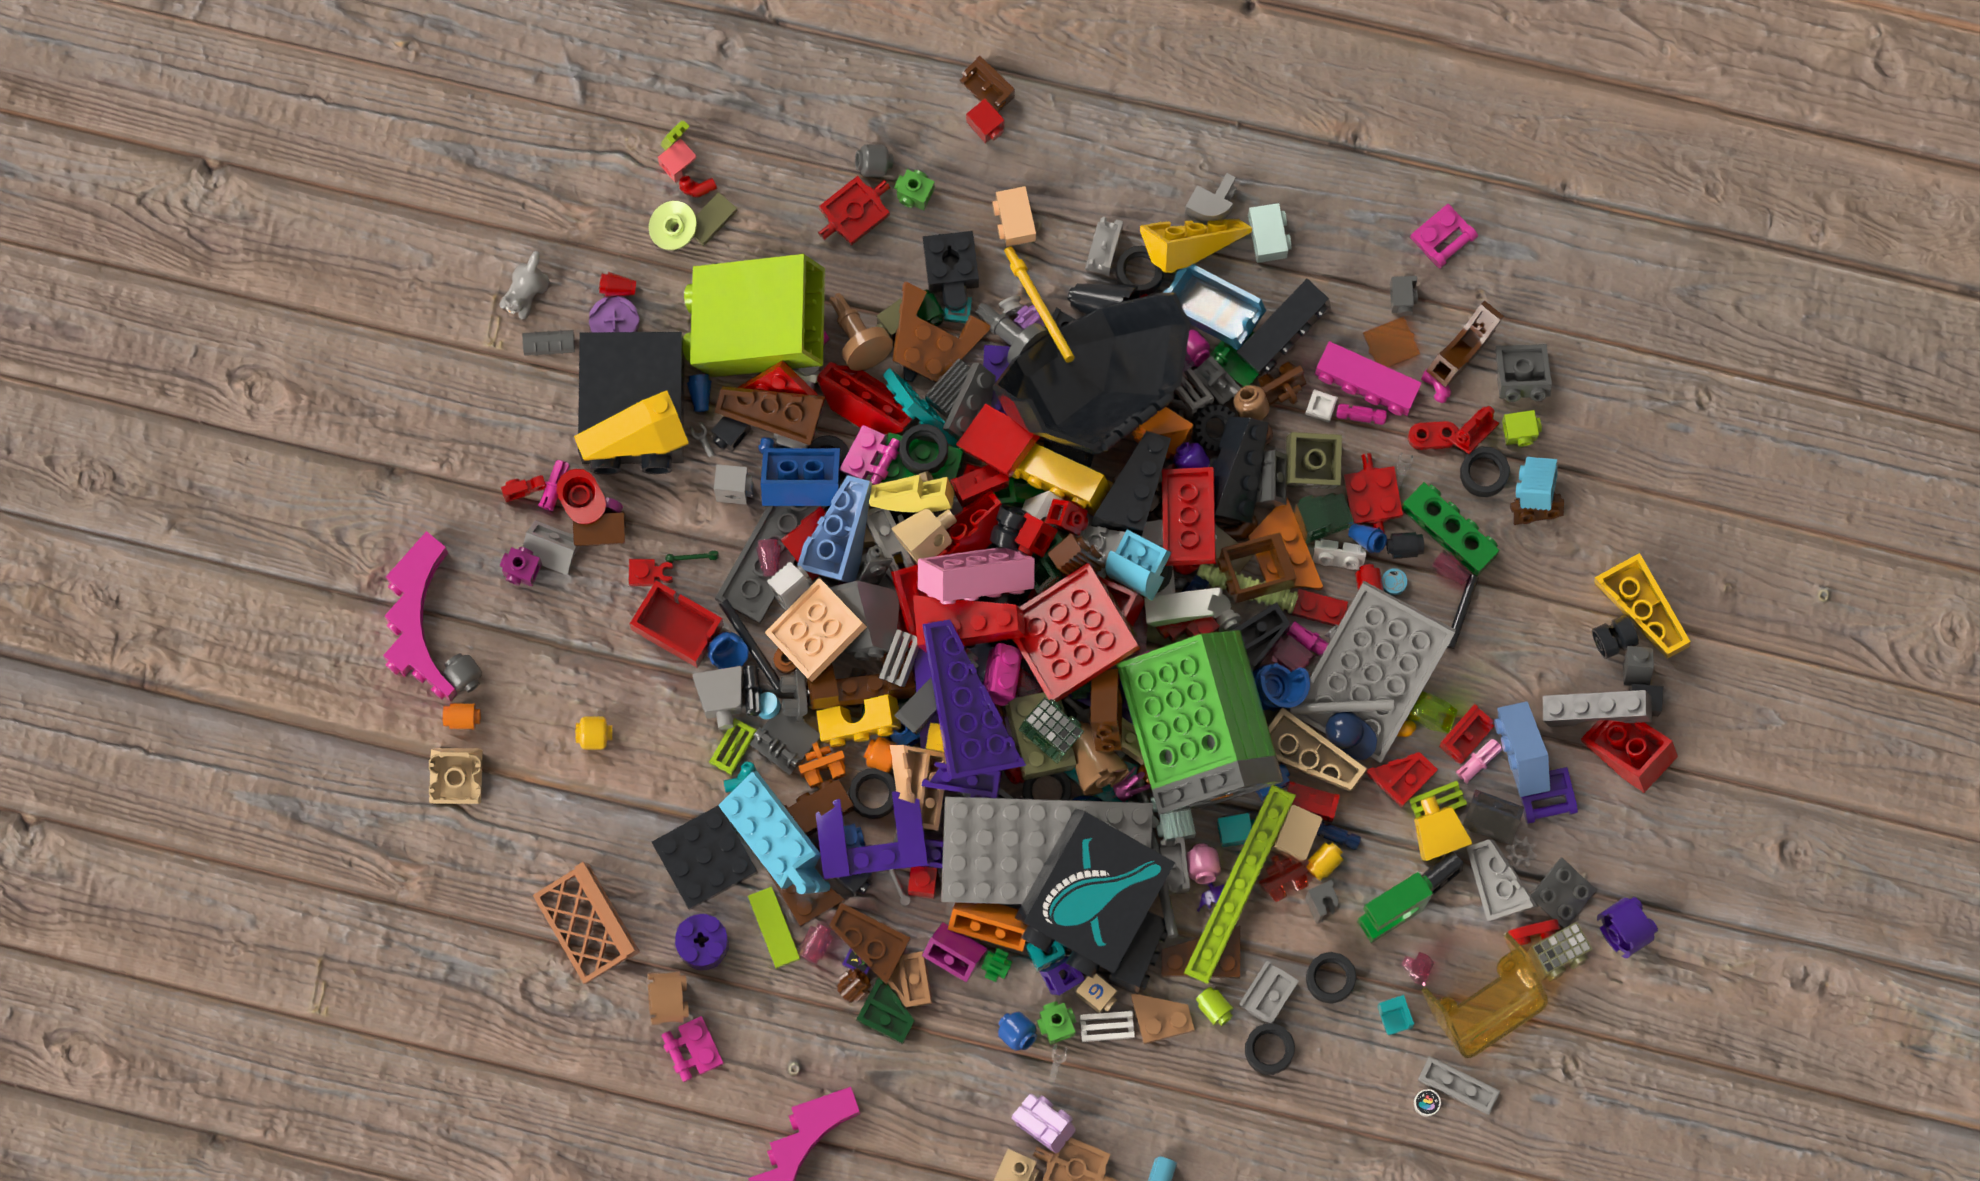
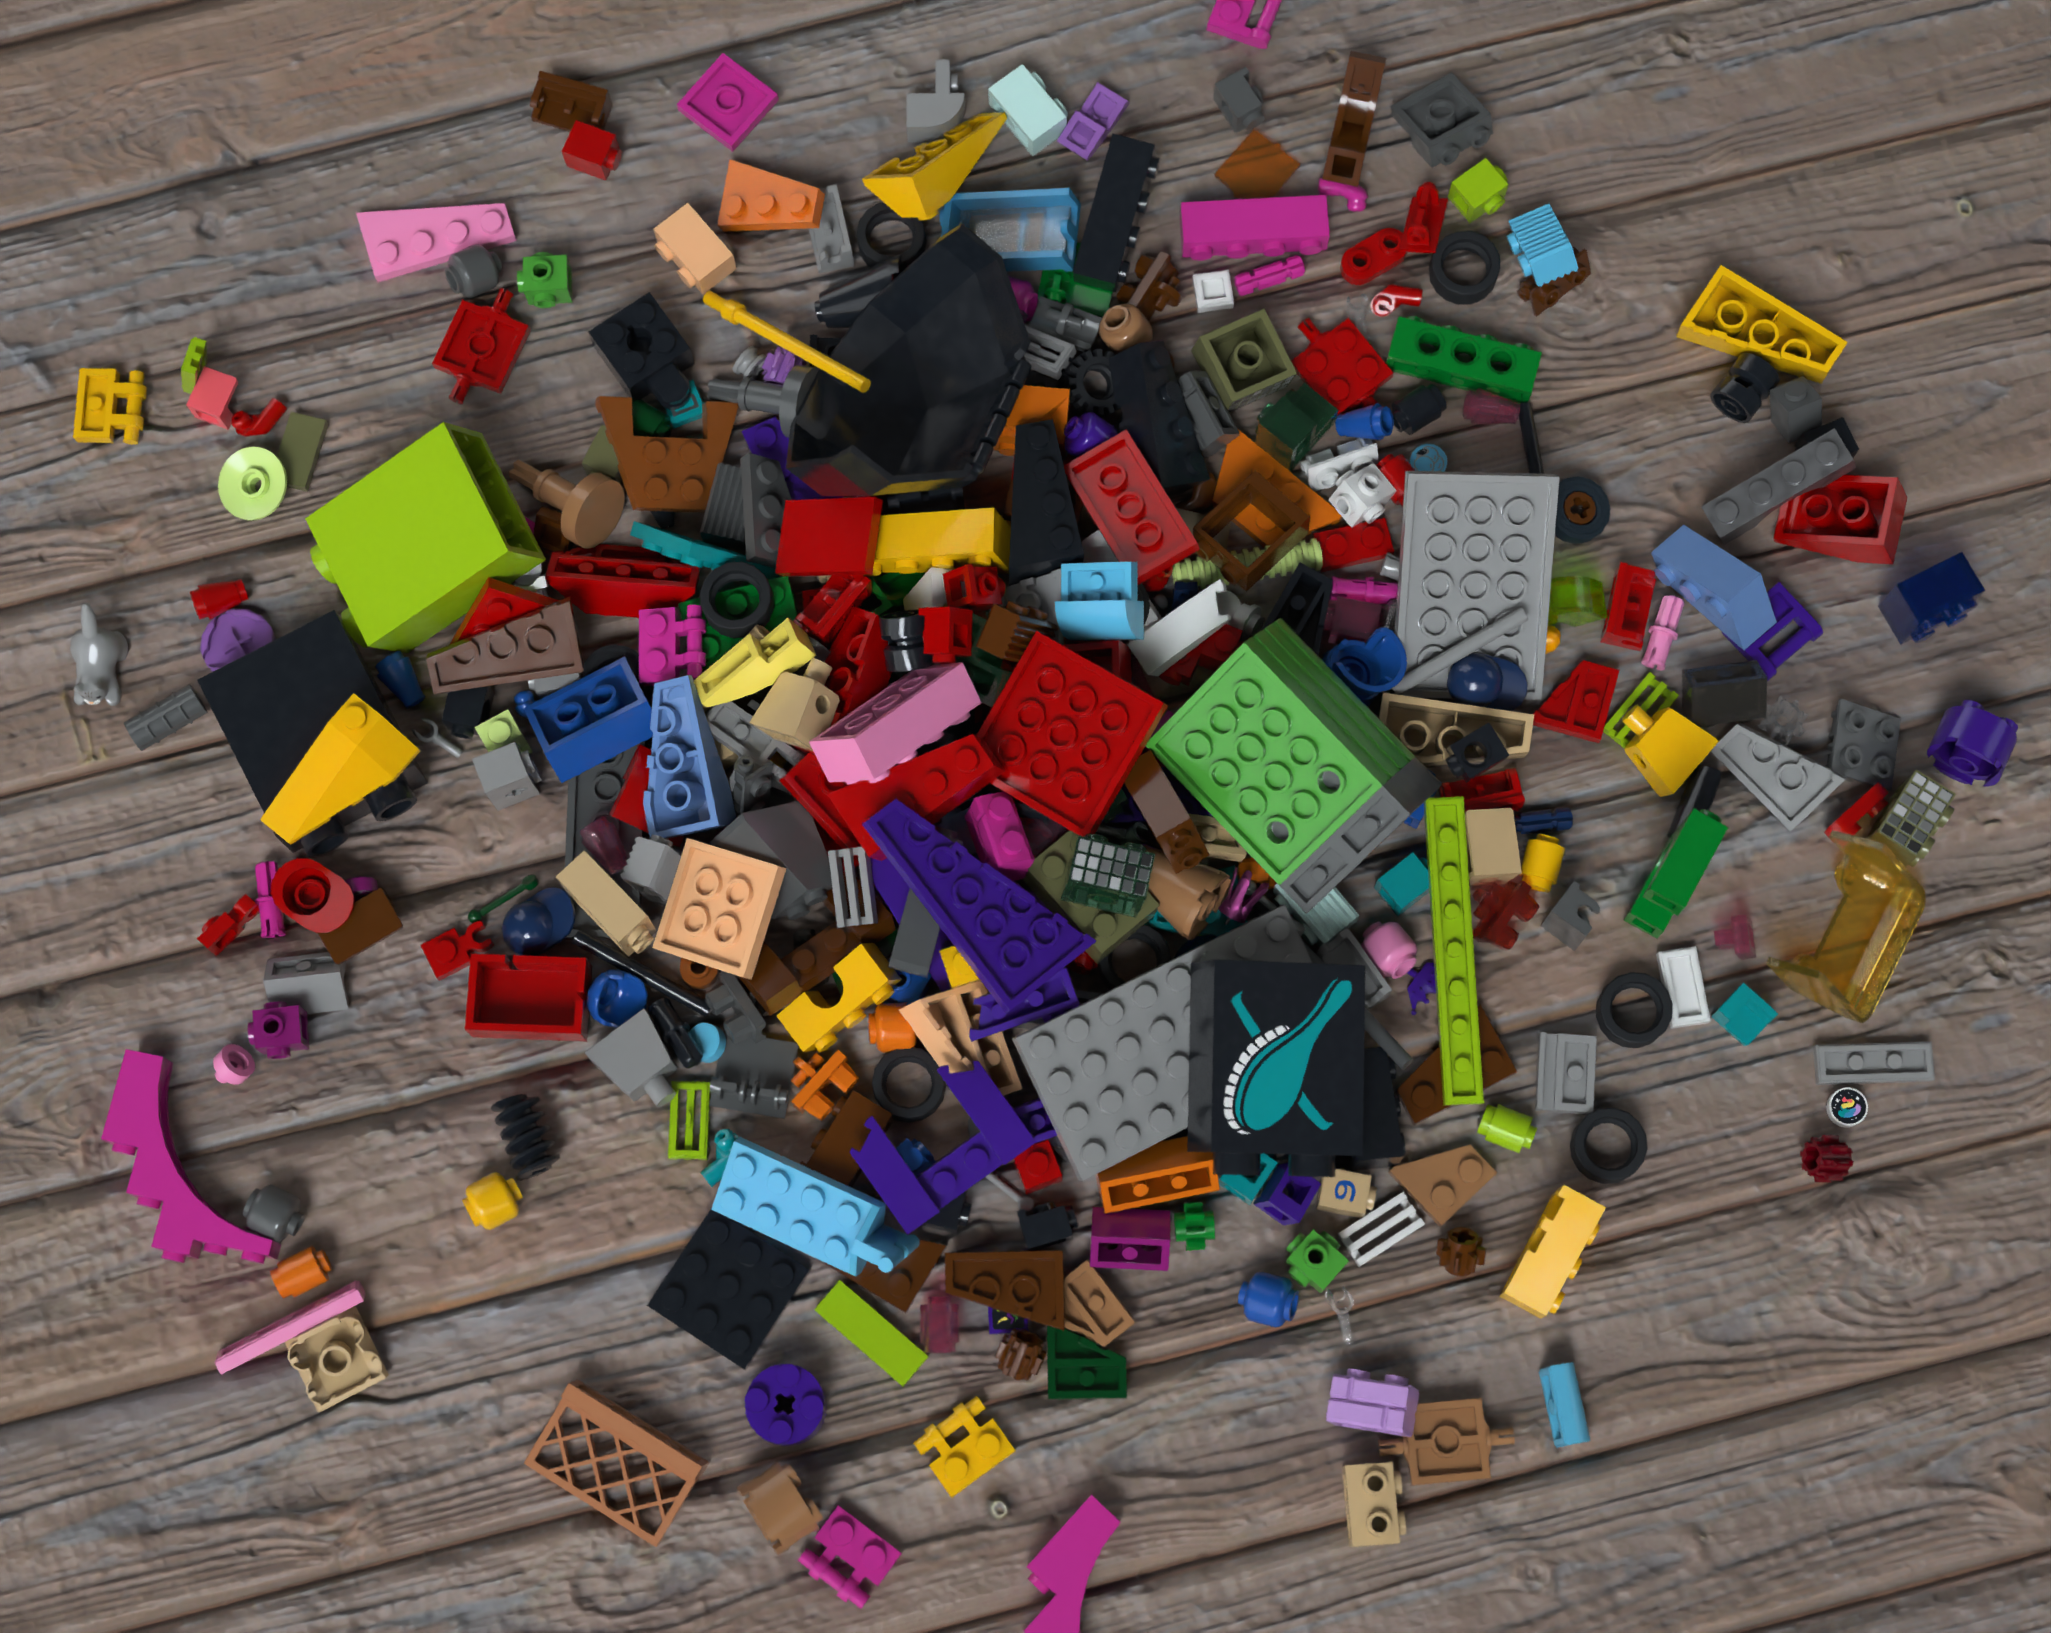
camera: 25 degrees left, 0 degrees up
(447, 744) = (289, 1326): none -> bright pink tile
(483, 573) = (233, 1064): none -> bright pink tile
(604, 128) = (97, 406): none -> yellow plate
(632, 704) = (524, 1135): none -> black piece
(705, 582) = (539, 922): none -> dark blue cap
(743, 456) = (502, 731): none -> yellowish green brick
(751, 593) = (607, 904): none -> tan window
(794, 1029) = (973, 1455): none -> yellow plate
(835, 346) = (548, 531): none -> reddish brown brick
(856, 123) = (426, 237): none -> bright pink wing
(910, 919) = (1047, 1225): none -> black brick
(1075, 209) = (767, 201): none -> orange wing
(1085, 132) = (727, 102): none -> dark pink plate
(1146, 1063) = (1461, 1251): none -> reddish brown gear
(1200, 1093) = (1553, 1252): none -> yellow wedge
(1305, 261) = (1093, 122): none -> medium lavender slope
(1325, 765) = (1485, 739): none -> black brick
(1340, 580) = (1359, 502): none -> white brick
(1369, 980) = (1683, 980): none -> white tile
(1395, 1125) = (1826, 1158): none -> dark red gear
(1431, 467) = (1392, 297): none -> red arm
(1477, 649) = (1596, 513): none -> black bush
(1652, 826) = (1932, 598): none -> clear blue brick

